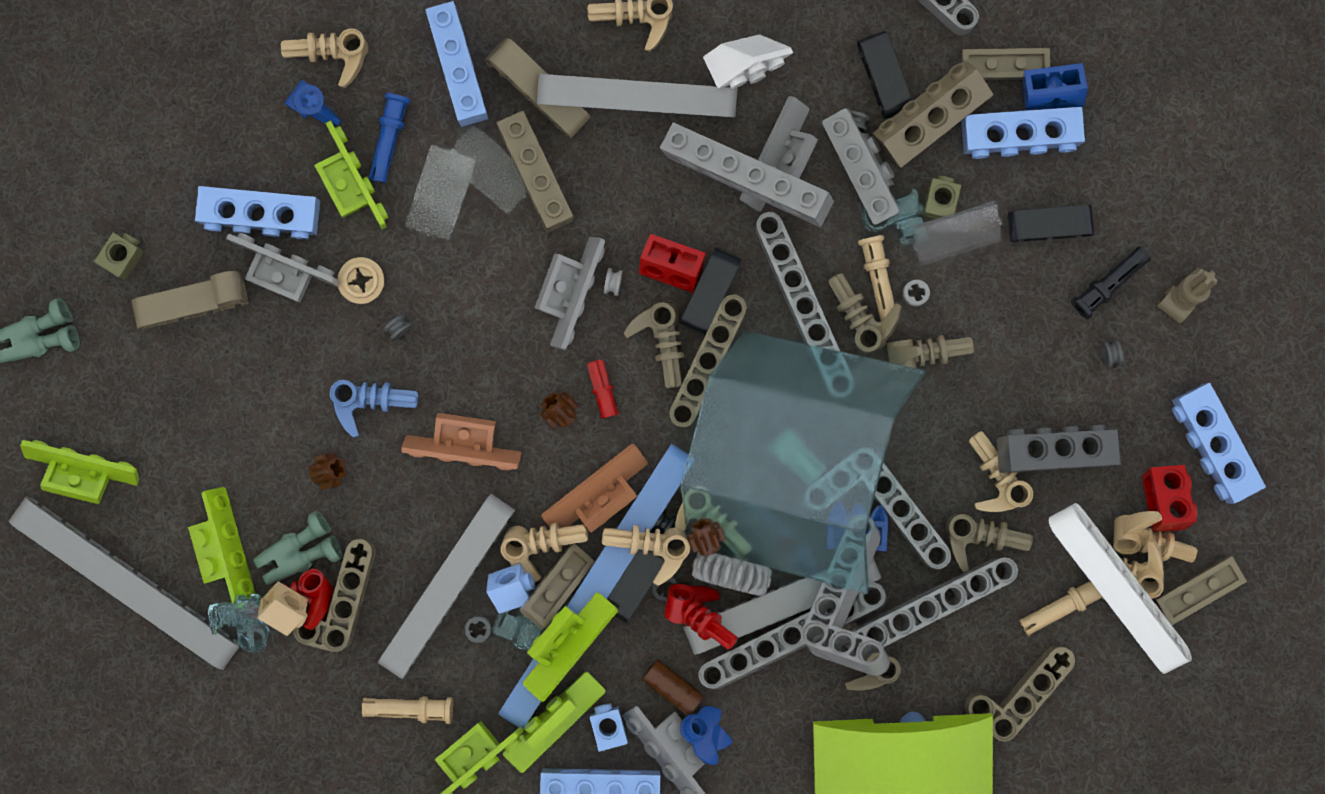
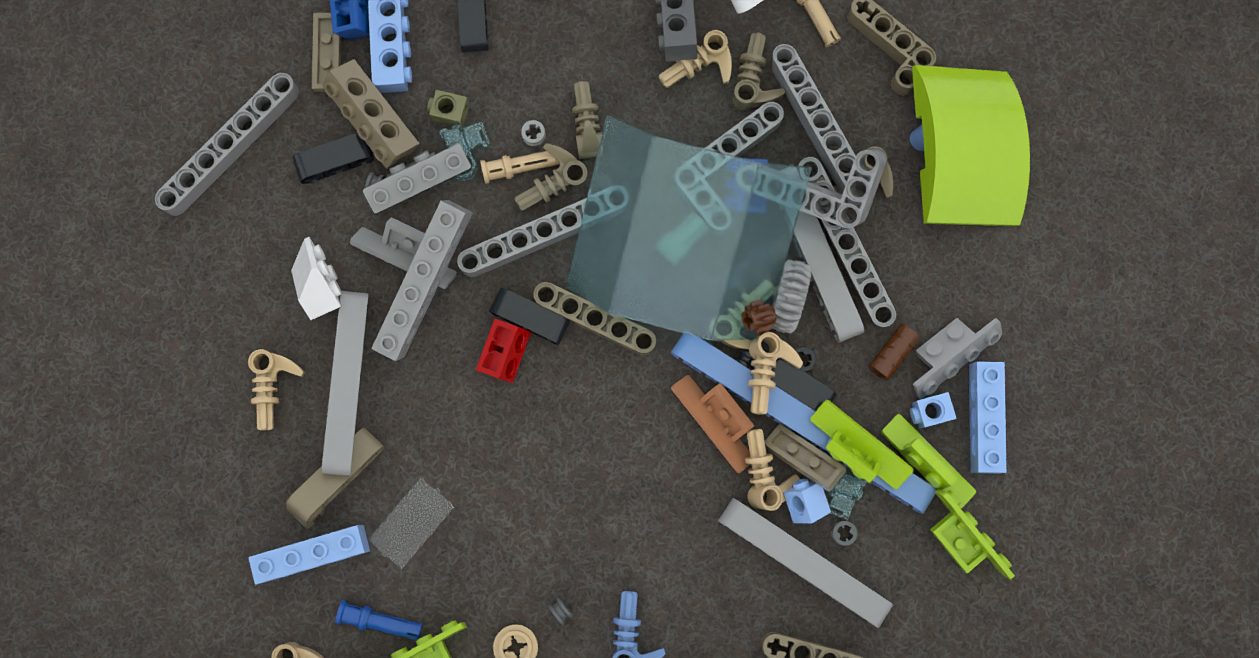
camera: 85 degrees left, 5 degrees down
(421, 709) = (920, 585): tan pin -> none
(440, 192) = (432, 570): clear piece -> none
(462, 440) = (668, 548): nougat bracket -> none
(535, 172) = (414, 479): dark tan brick -> none
(558, 410) = (639, 456): reddish brown gear -> none
(566, 289) = (527, 449): light grey bracket -> none
(602, 389) = (619, 416): red axle -> none
(613, 281) = (520, 406): light grey bush -> none
(667, 340) = (578, 355): dark tan piece -> none
(686, 607) = (821, 340): red piece -> none
(708, 734) = (936, 320): blue plate -> none
(957, 233) = (479, 94): clear piece -> none

